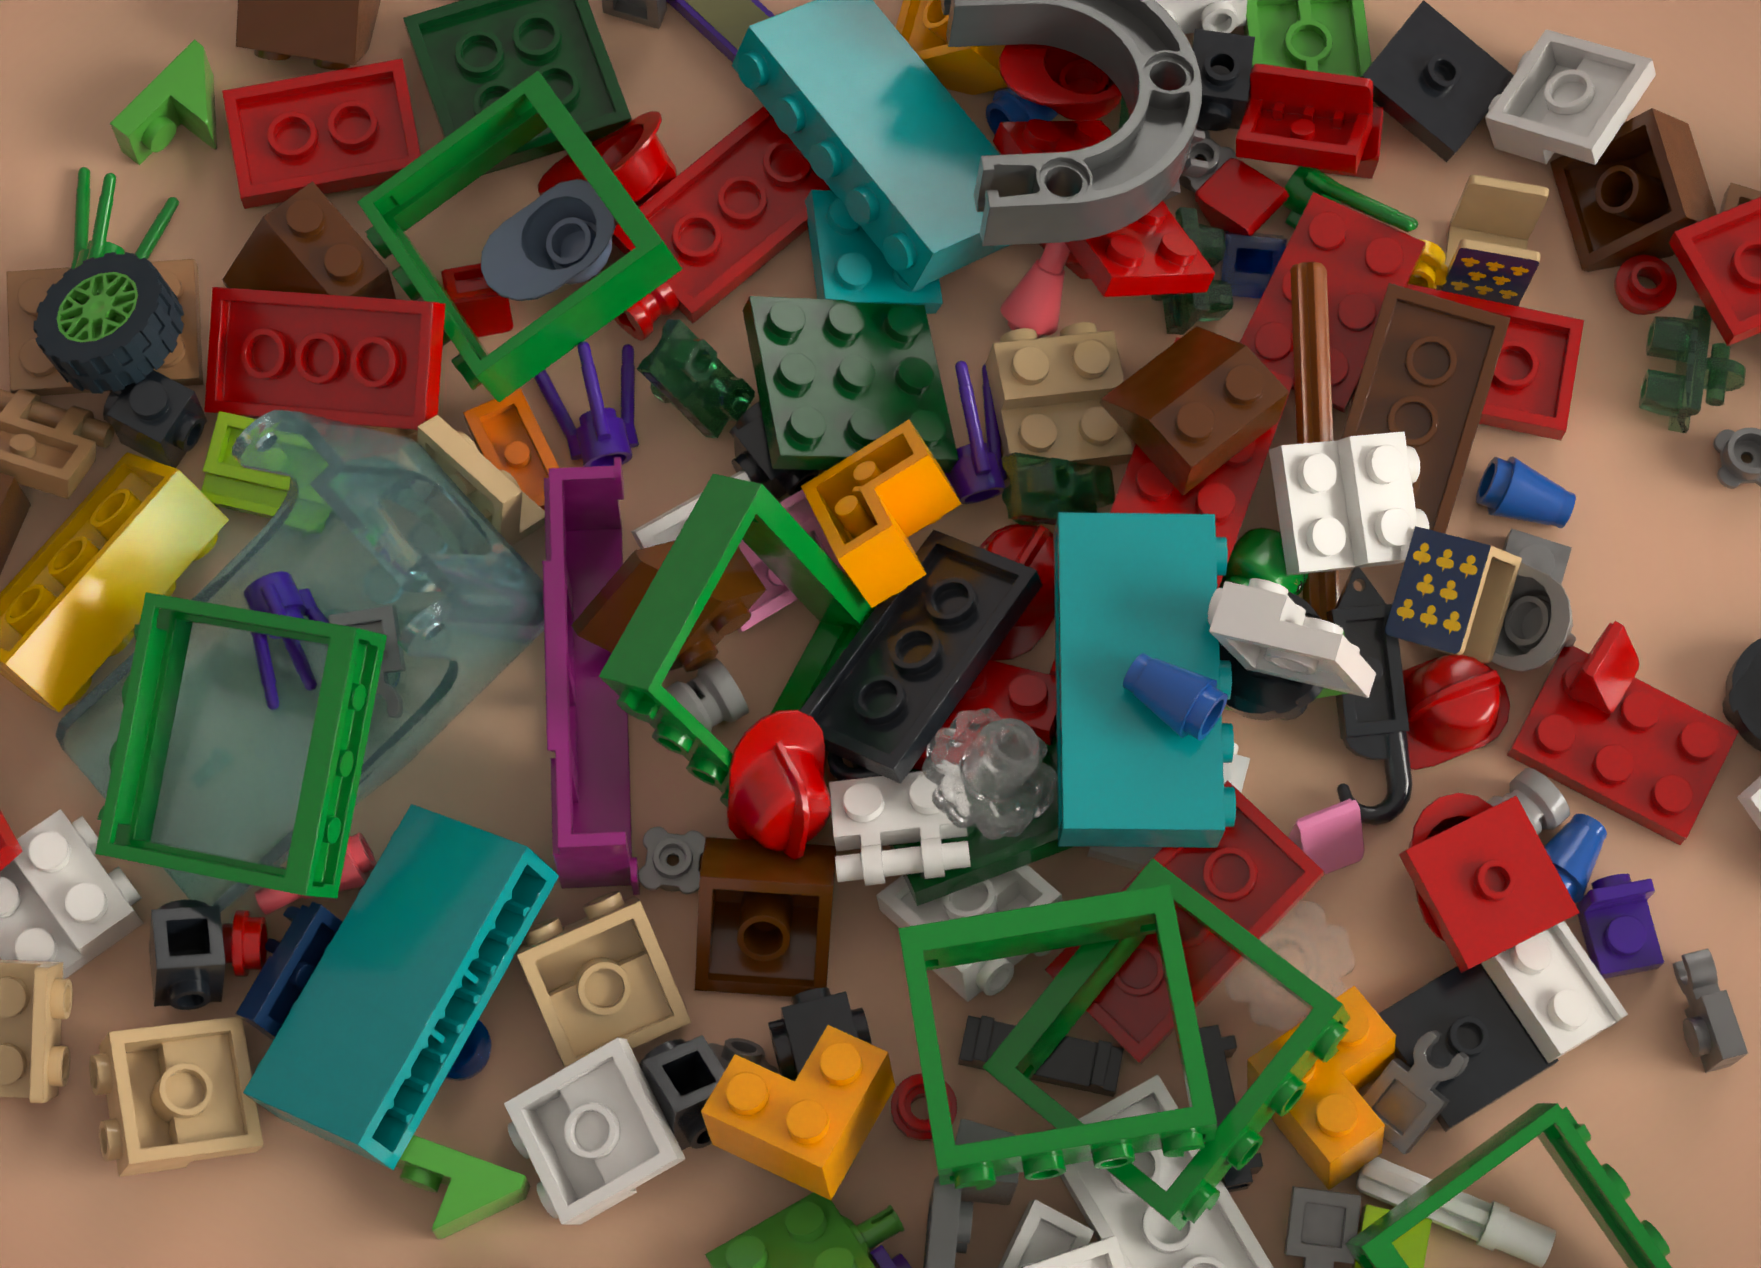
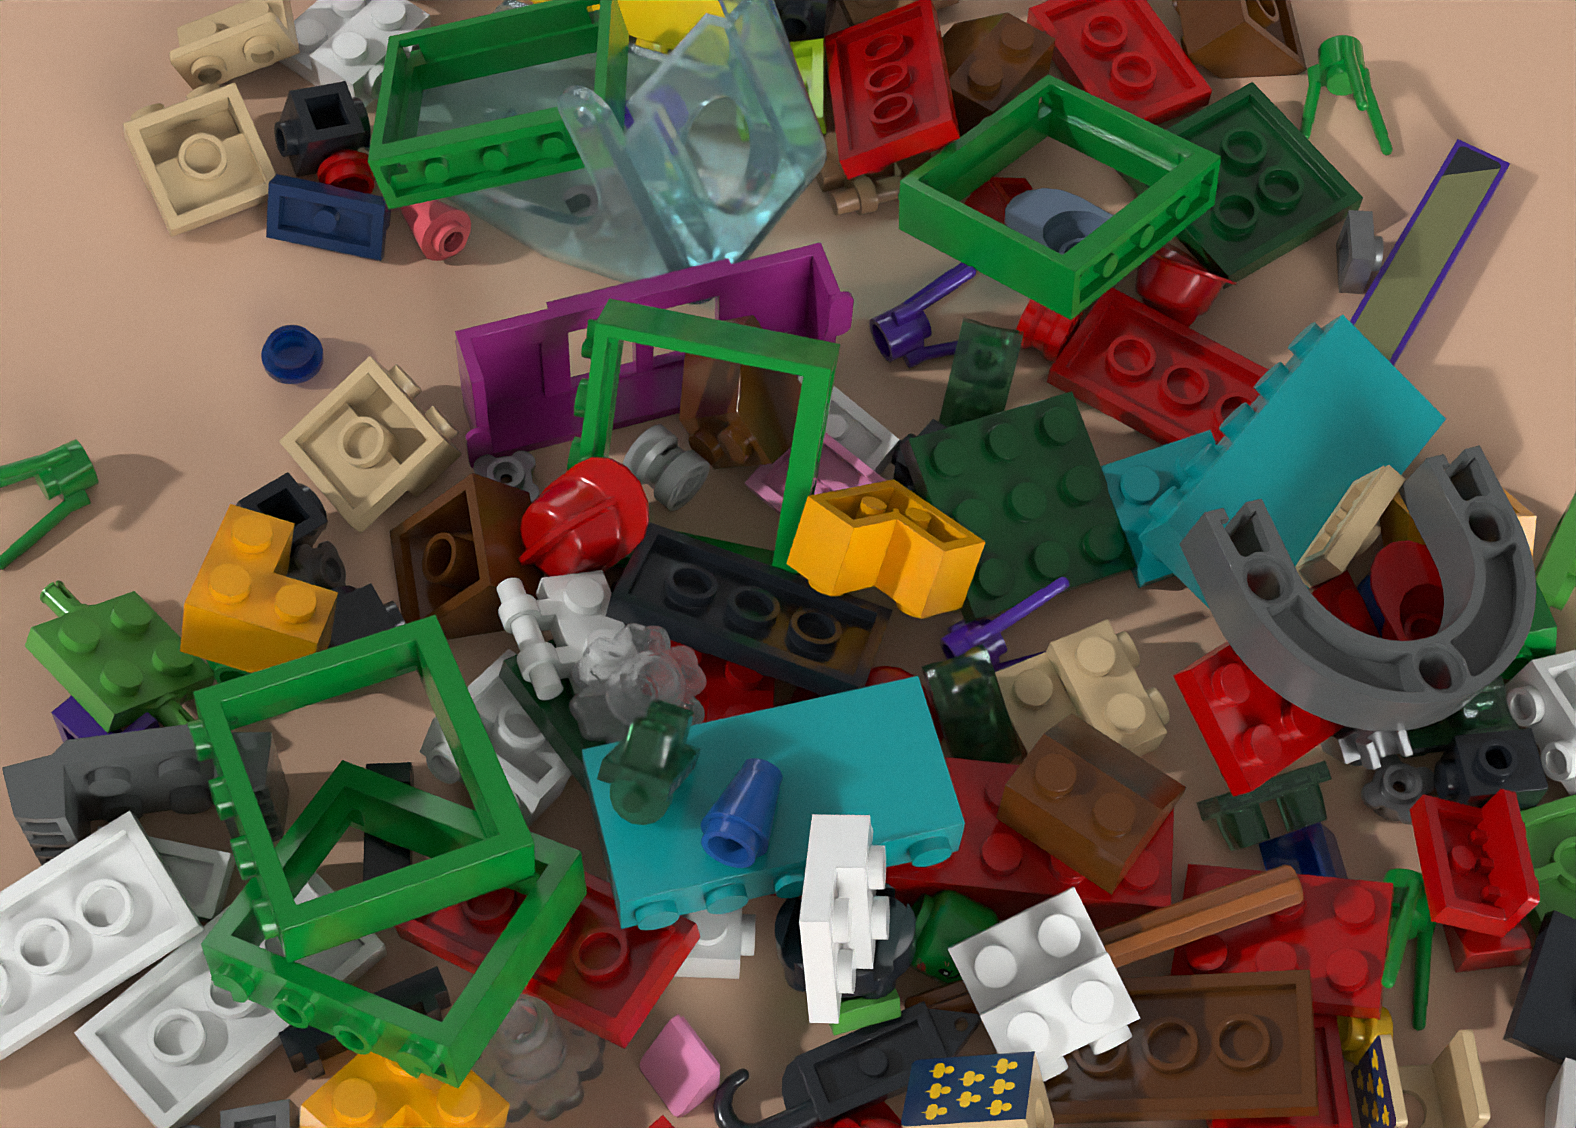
camera: 75 degrees right, 10 degrees down
(402, 985) = (323, 282): teal brick -> none
(474, 1185) = (164, 384): bright green slope -> none
(487, 487) = (814, 213): tan bracket -> none
(513, 442) = (875, 261): orange plate -> none
(592, 1133) = (218, 458): white plate -> none
(901, 1113) = (309, 729): red plate -> none
(967, 100) = (1350, 526): none -> tan plate
(1038, 295) = (1168, 653): coral cone -> none
(1115, 759) = (650, 763): none -> clear green hips
(1239, 198) = (1369, 829): red slope -> none

